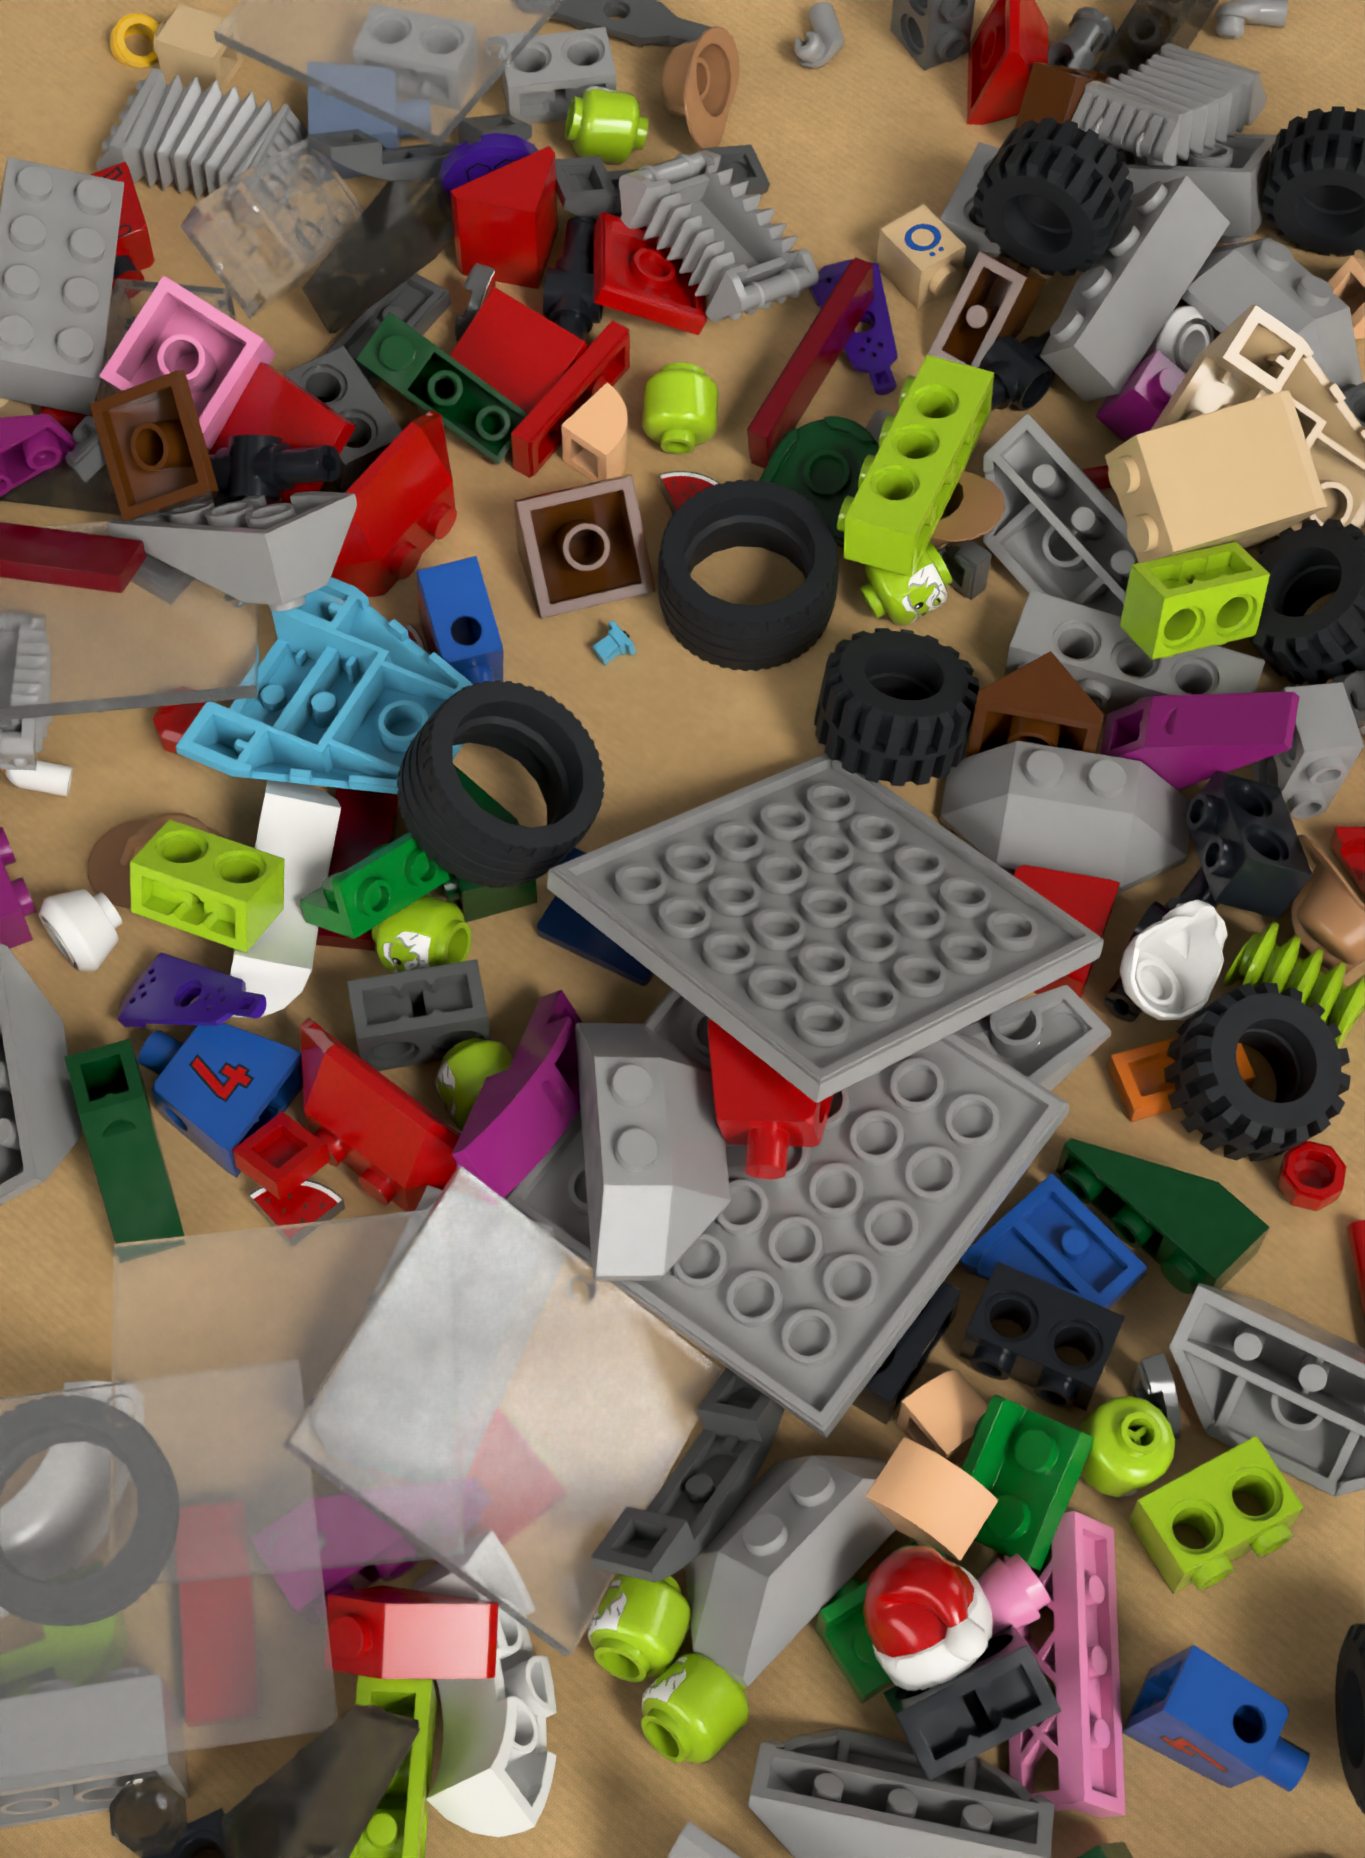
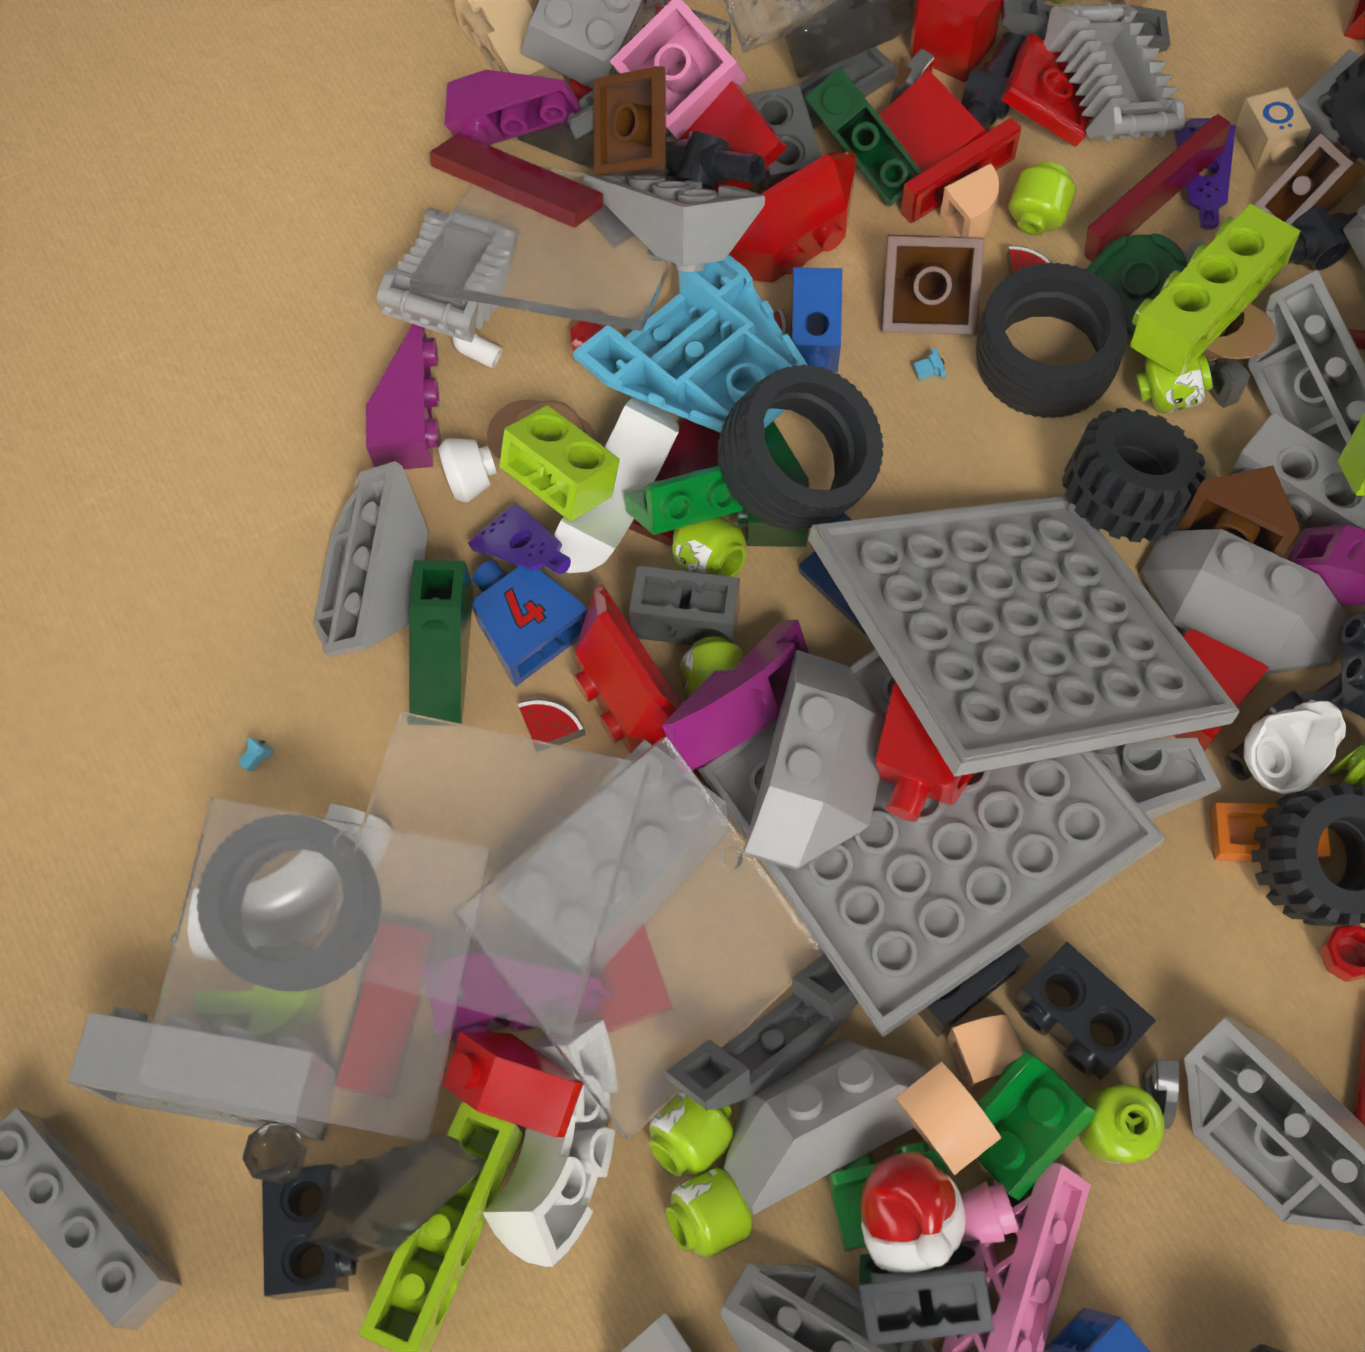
camera: 25 degrees right, 5 degrees up
(281, 1155) = (548, 682): red plate -> none
(1059, 1243) = (1122, 943): blue wing -> none
(1174, 1216) = (1229, 954): dark green slope -> none
(1206, 1503) = (1175, 1193): lime brick -> none

